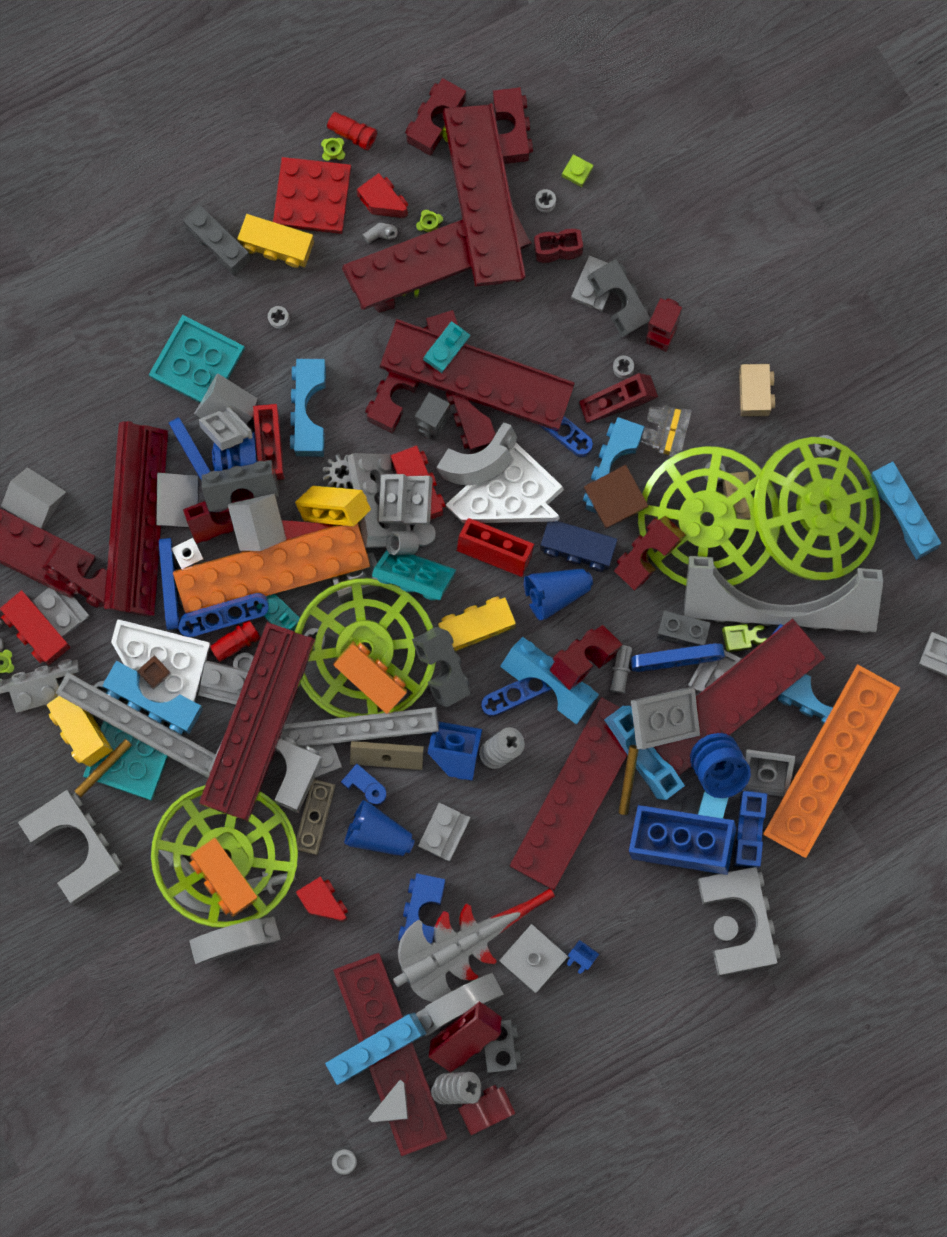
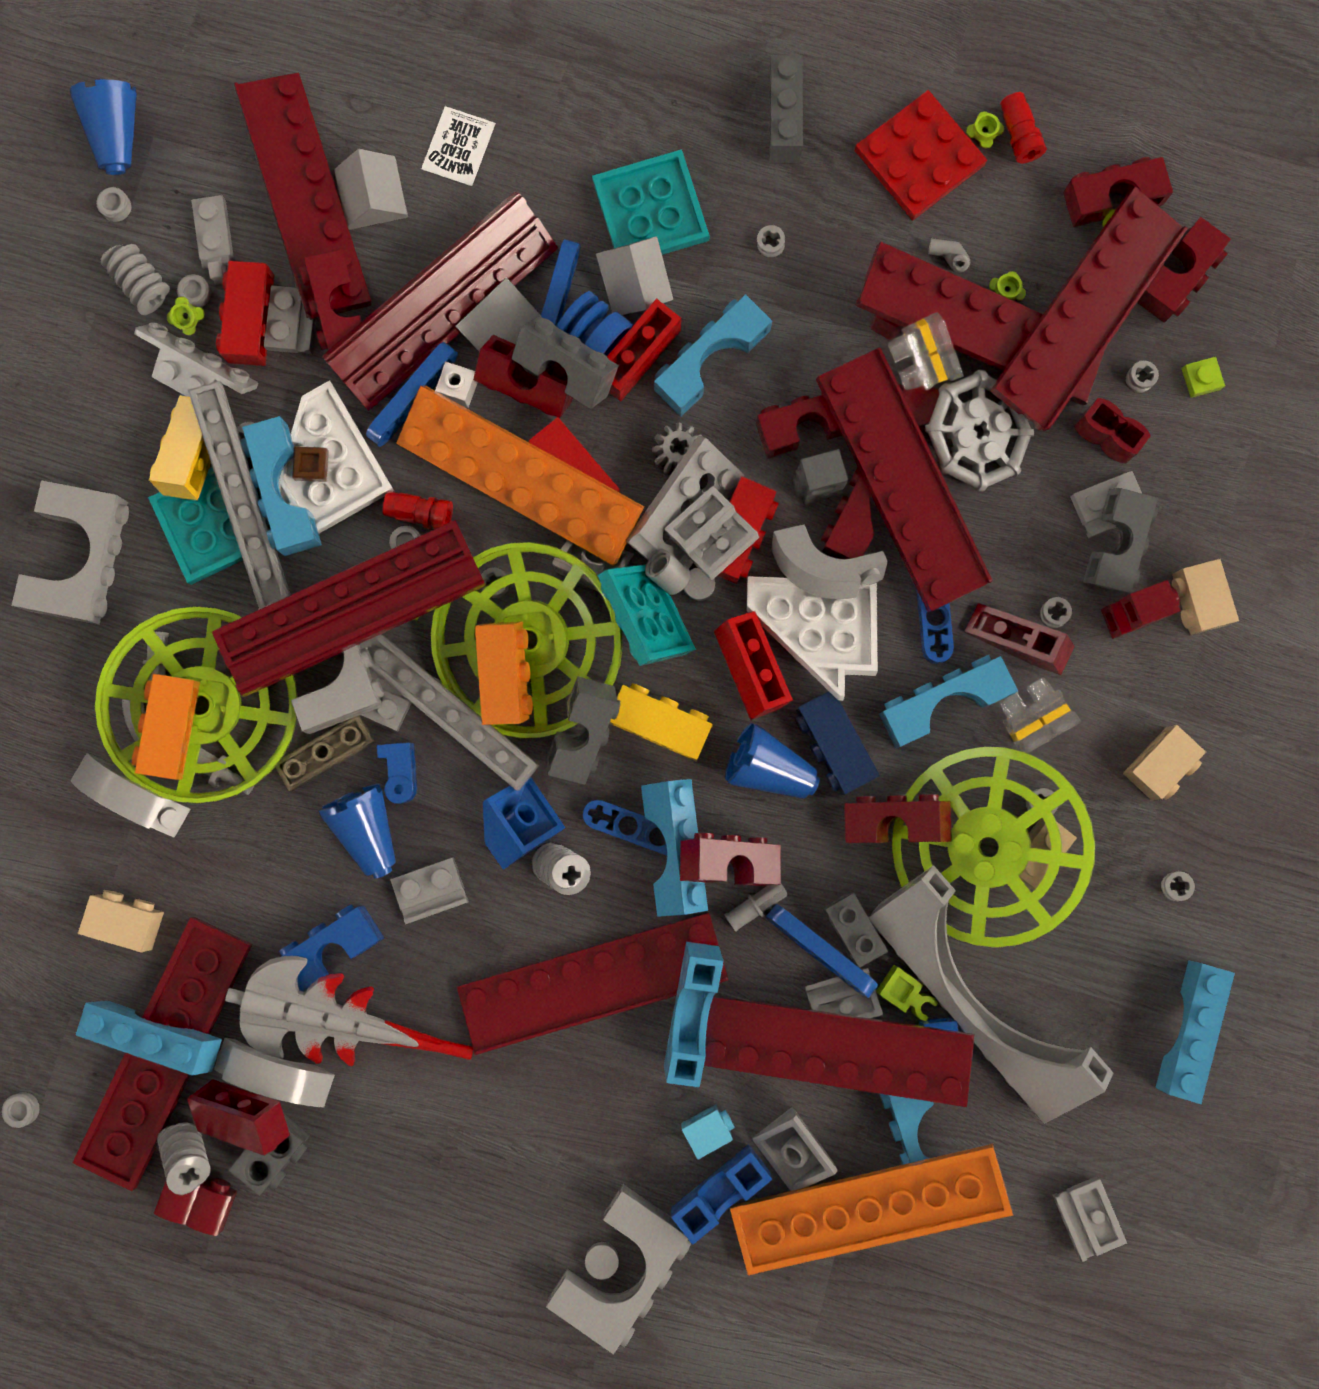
camera: 45 degrees right, 5 degrees up
(55, 428) = (458, 146): none -> white sticker
(102, 768) = (172, 508): pearl gold bar -> none
(222, 682) = (364, 534): light grey plate -> none
(225, 428) = (605, 292): light grey plate -> none
(225, 618) = (430, 471): blue beam -> none
(257, 523) = (545, 415): light grey slope -> none
(275, 241) = (841, 164): yellow brick -> none
(280, 613) = (484, 524): teal plate -> none
(298, 1009) = (120, 921): none -> tan brick
(320, 902) = (245, 841): red slope -> none
(333, 505) = (635, 470): yellow brick -> none
(380, 198) = (983, 219): red slope -> none
(386, 755) = (448, 762): dark tan tile -> none
(393, 1107) = (98, 1116): light grey slope -> none
(426, 296) = (931, 353): none -> clear hips
(446, 347) = (901, 422): teal plate -> none
(503, 313) = (966, 445): none -> light grey plate
(533, 958) = (390, 1099): light grey plate -> none
(582, 955) = (437, 1147): blue tile -> none
(615, 497) = (919, 733): reddish brown tile -> none
(628, 780) = (652, 1023): pearl gold bar -> none
(665, 718) = (745, 1005): light grey plate -> none
(682, 839) = (643, 1138): blue brick -> none
(691, 285) = (1204, 597): none -> tan brick
(720, 765) = (753, 1104): blue wheel -> none
(809, 511) = (1102, 940): lime dish -> none

